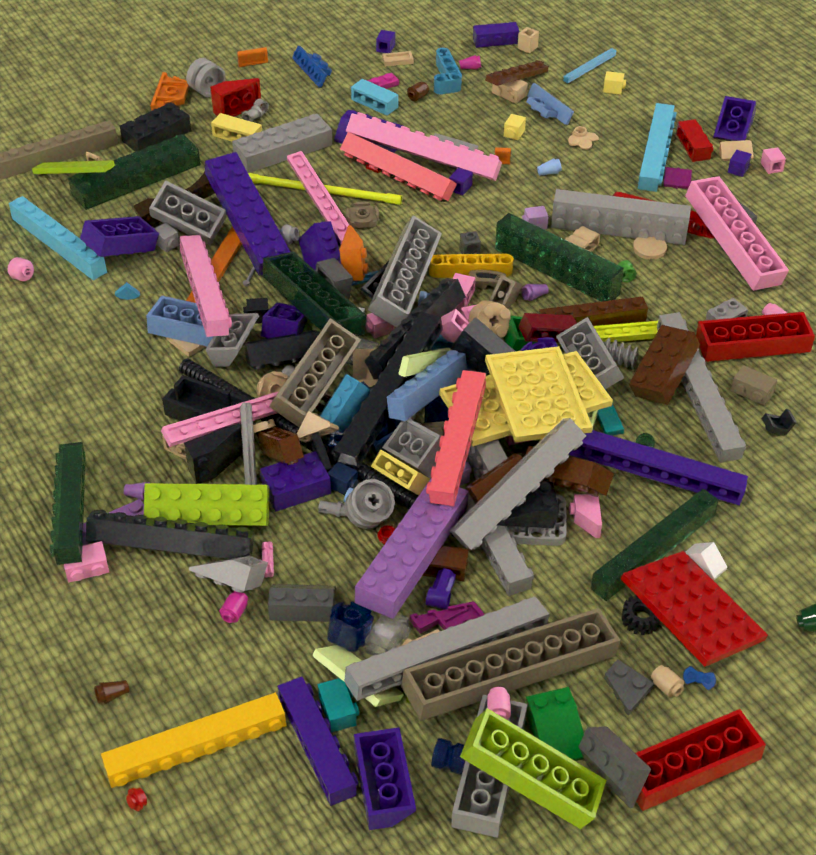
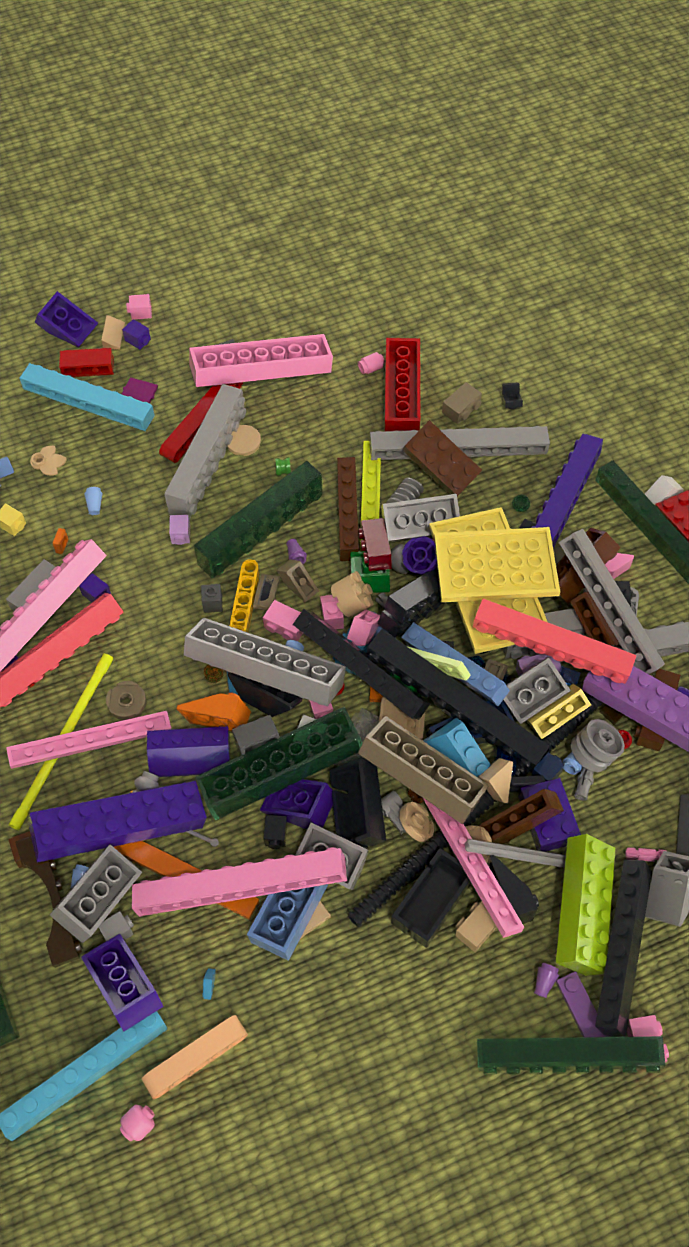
camera: 80 degrees left, 15 degrees up
(70, 292) = (194, 1057): none -> light nougat beam
(585, 238) = (229, 495): tan brick -> none
(727, 309) = (365, 401): light grey brick -> none

